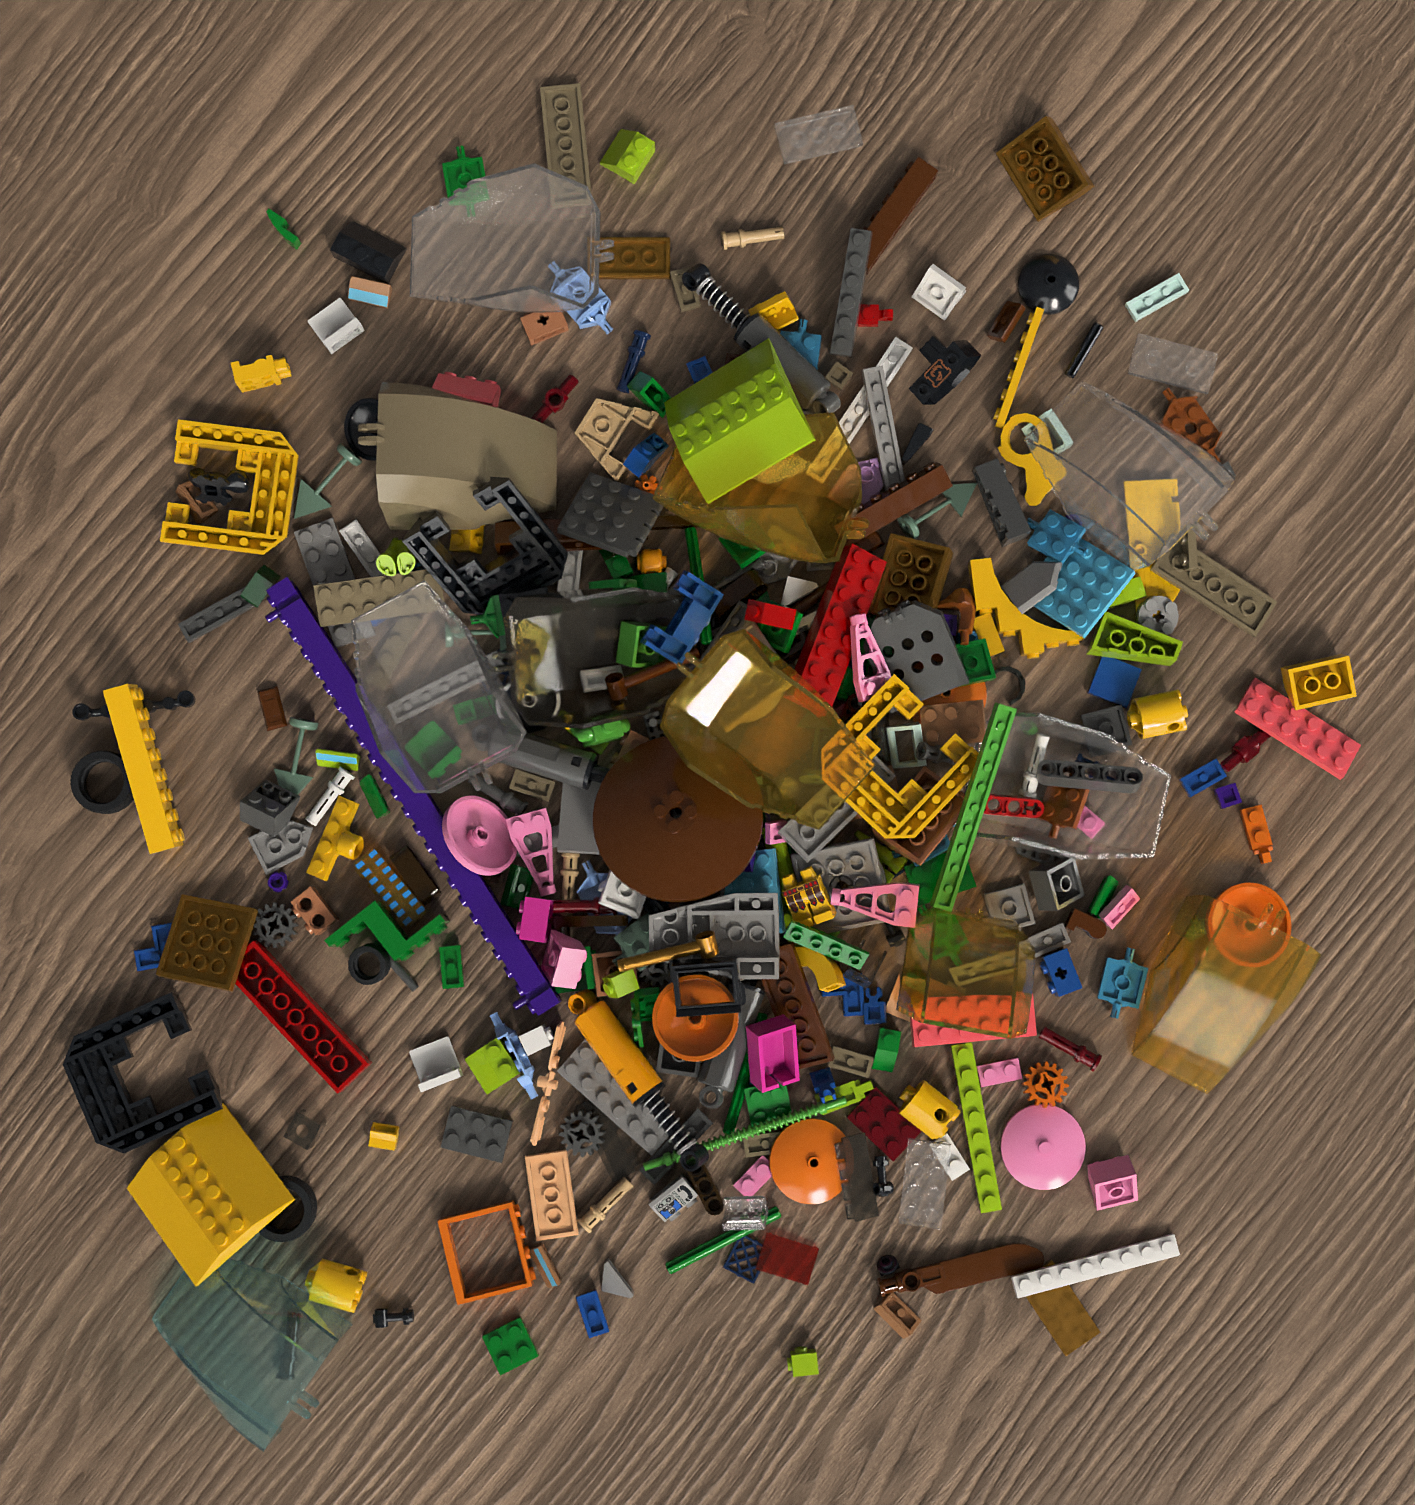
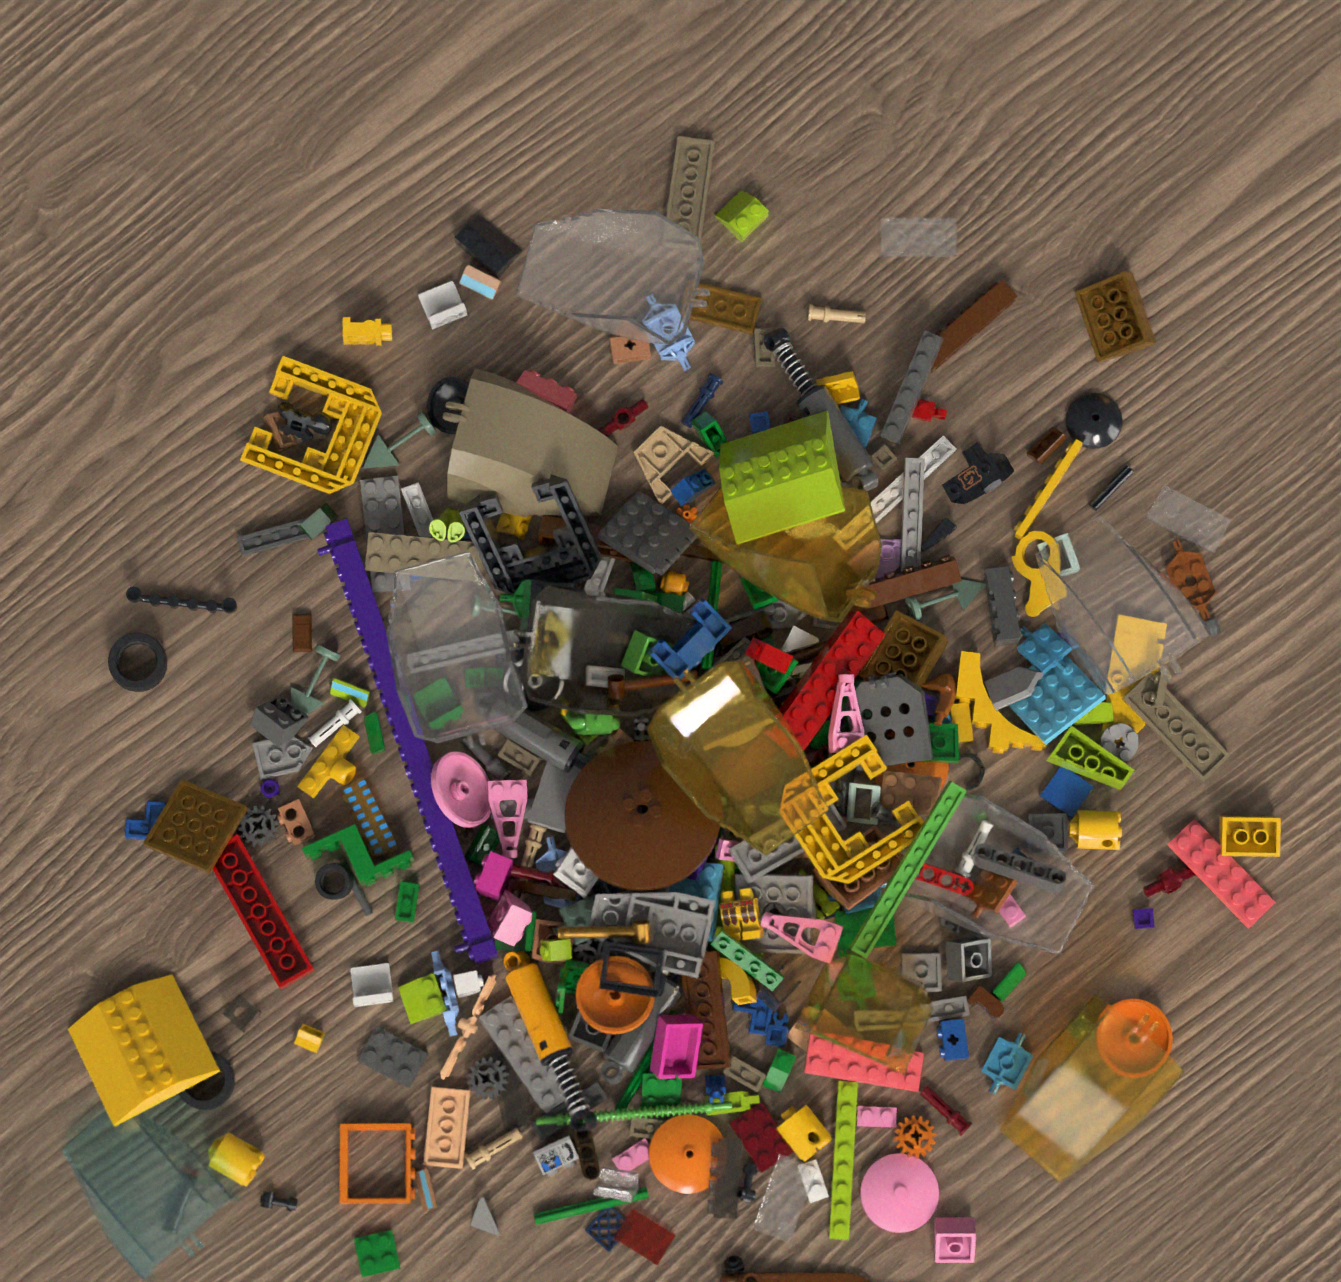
camera: 10 degrees right, 5 degrees down
(102, 1091) = (68, 937): black slope -> none
(143, 767) = (176, 657): yellow brick -> none
(281, 226) = (415, 203): green slope -> none
(415, 875) = (394, 812): dark brown beam -> none
(462, 171) = (589, 196): green plate -> none
(592, 1313) = (458, 1242): blue plate -> none
(895, 937) = (812, 972): black bar -> none
(939, 292) = (992, 405): white bracket -> none
(1119, 906) = (1020, 994): bright pink plate -> none
(1156, 297) = (1188, 456): light aqua plate -> none
(1202, 777) = (1124, 897): blue plate -> none
(1257, 832) = (1162, 958): orange hinge -> none

